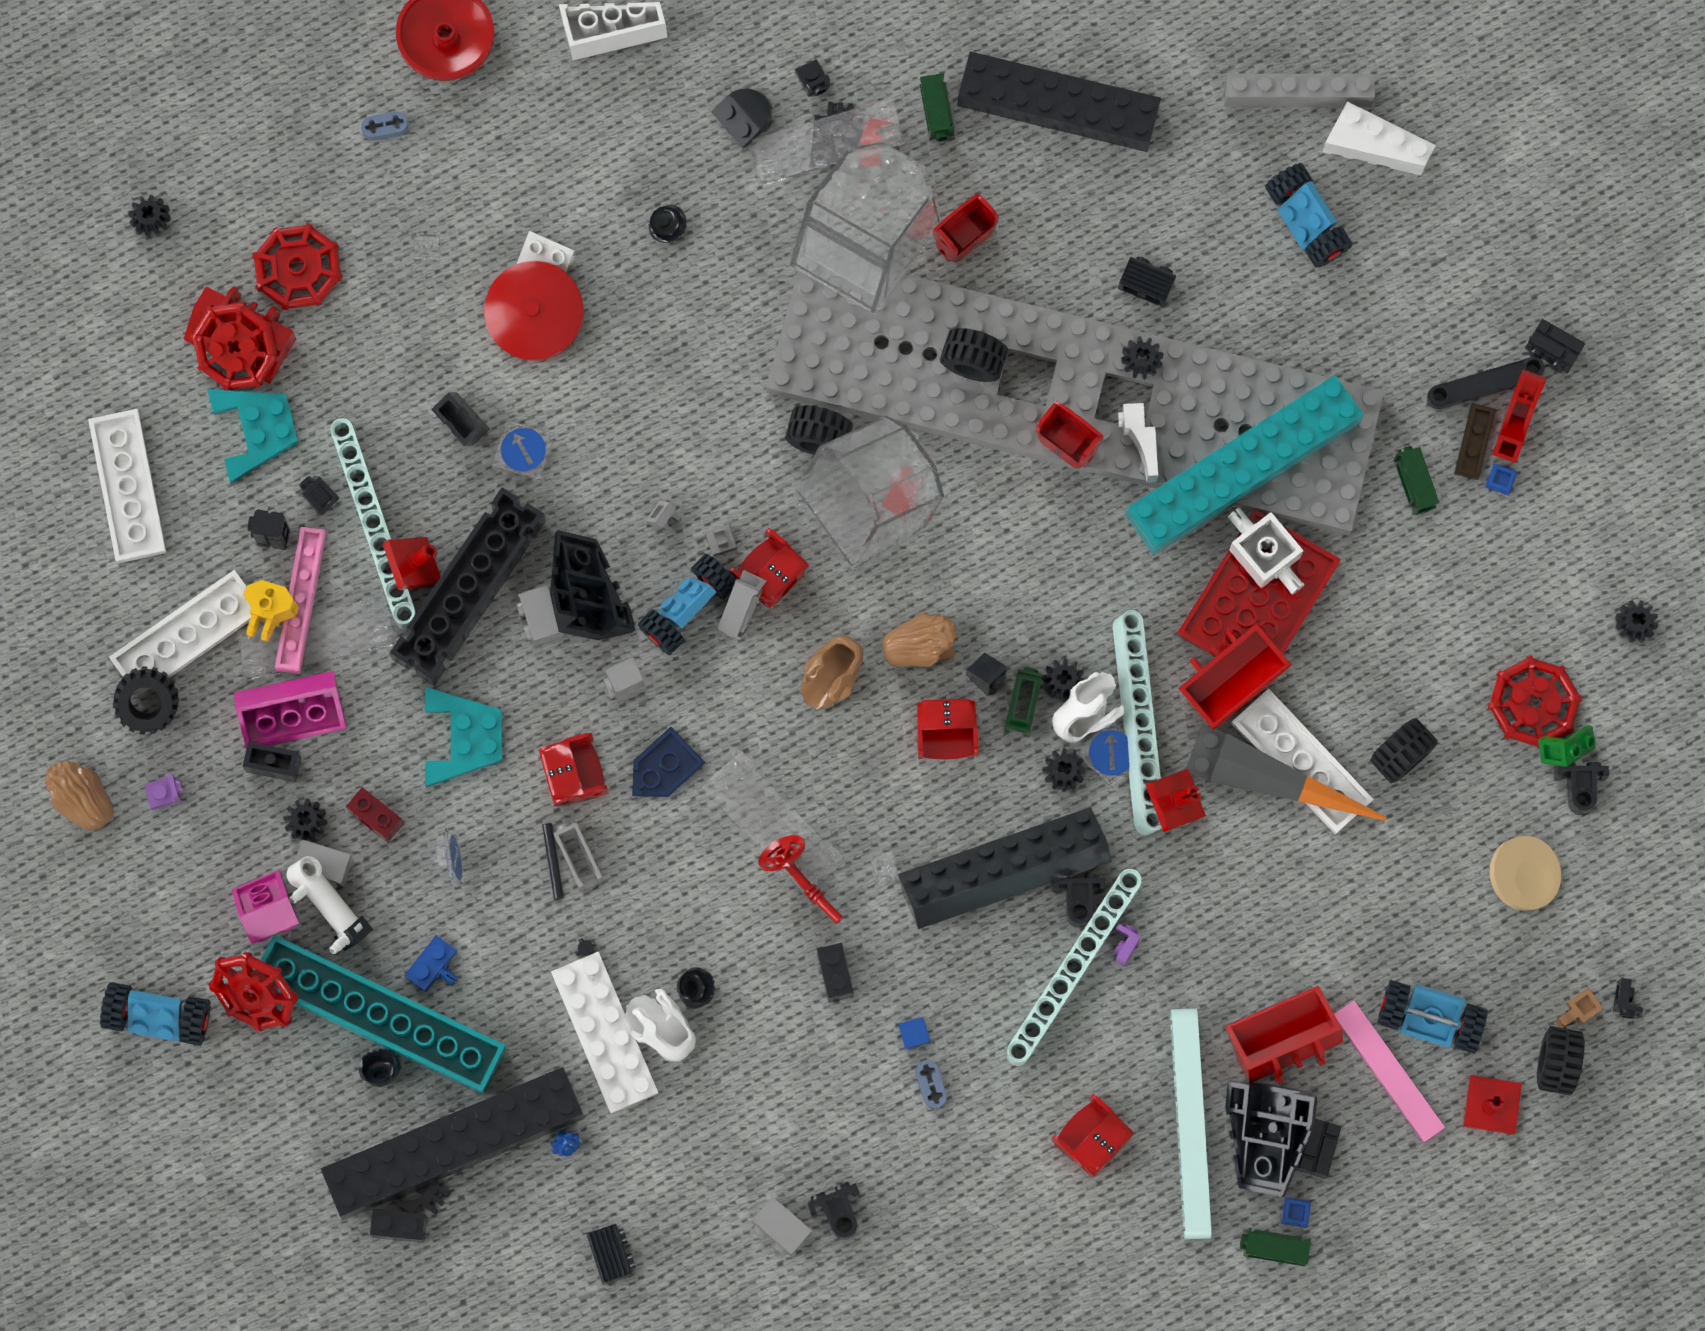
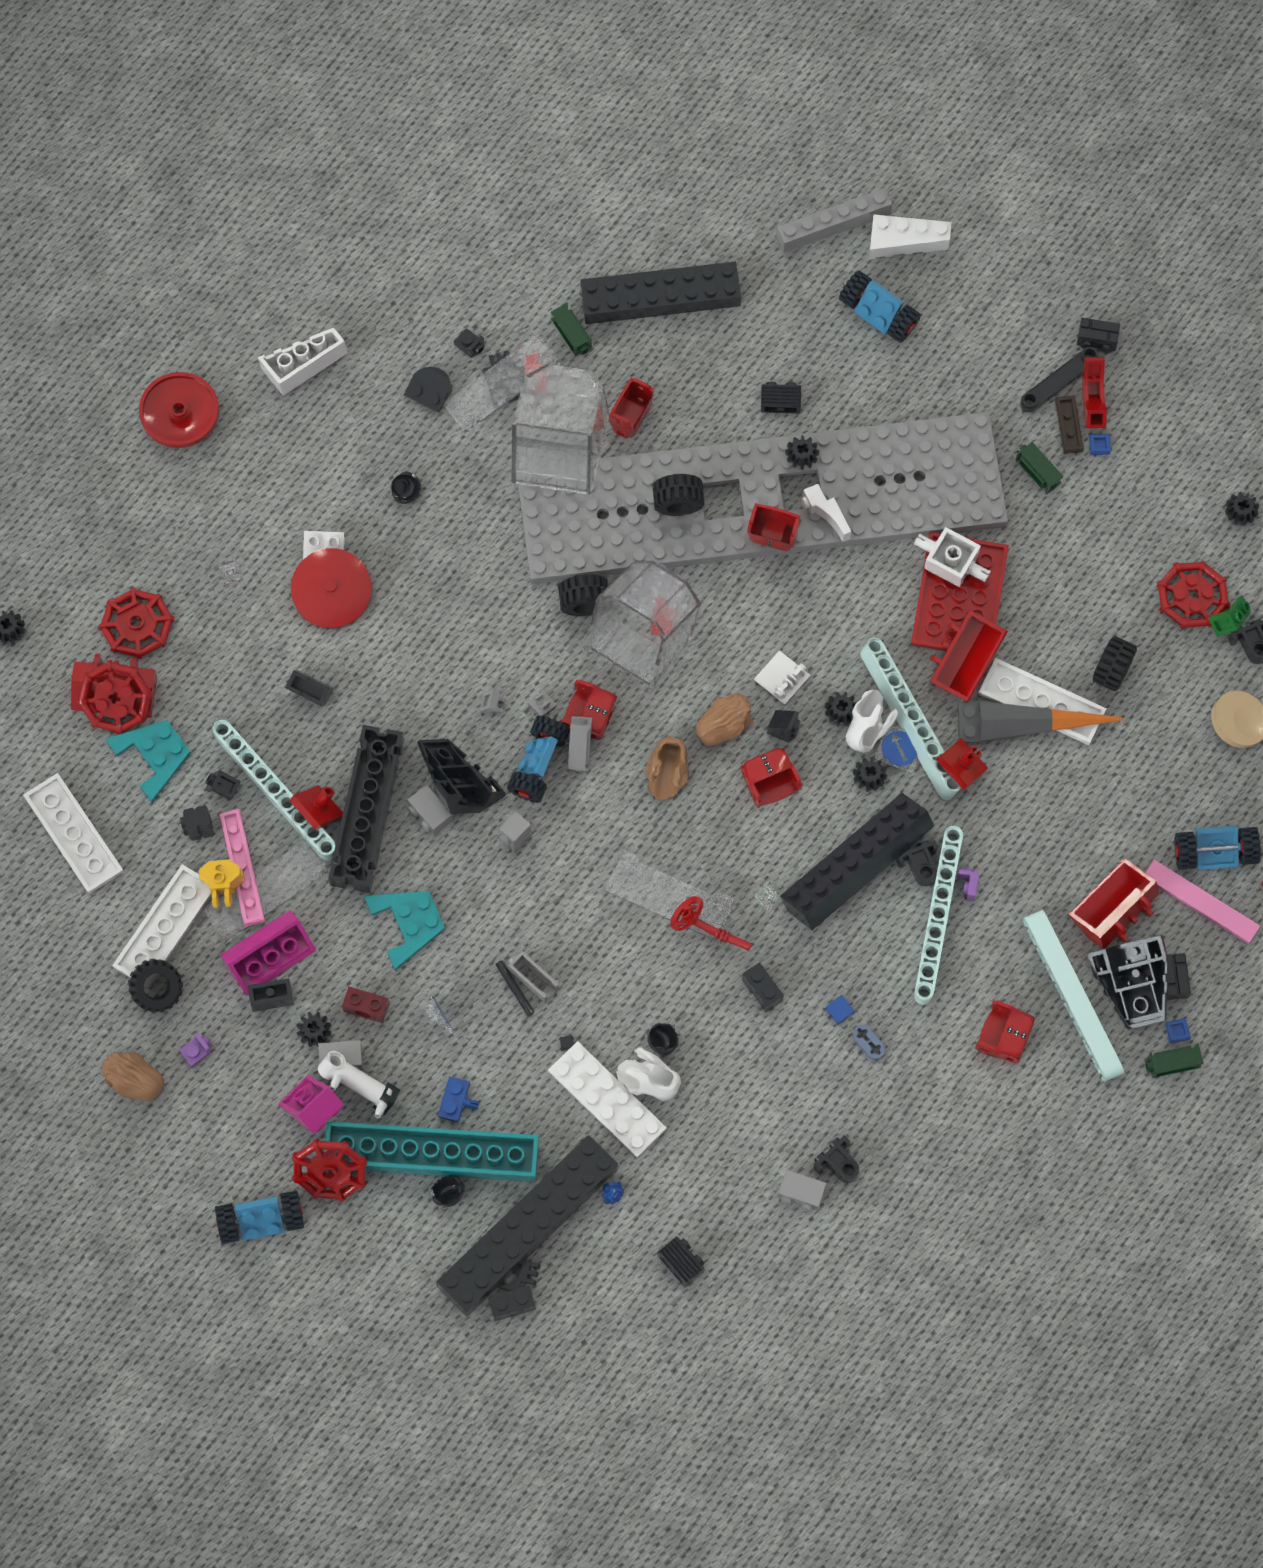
camera: 20 degrees left, 5 degrees down
(383, 120) = (162, 499): sand blue beam -> none
(523, 449) = (365, 693): piece -> none
(573, 770) = (502, 914): red piece -> none
(664, 766) = (570, 885): dark blue tile -> none
(1010, 615) = (782, 677): none -> white hinge
(1030, 675) = (817, 714): dark green window -> none
(1244, 465) = (910, 501): teal brick -> none

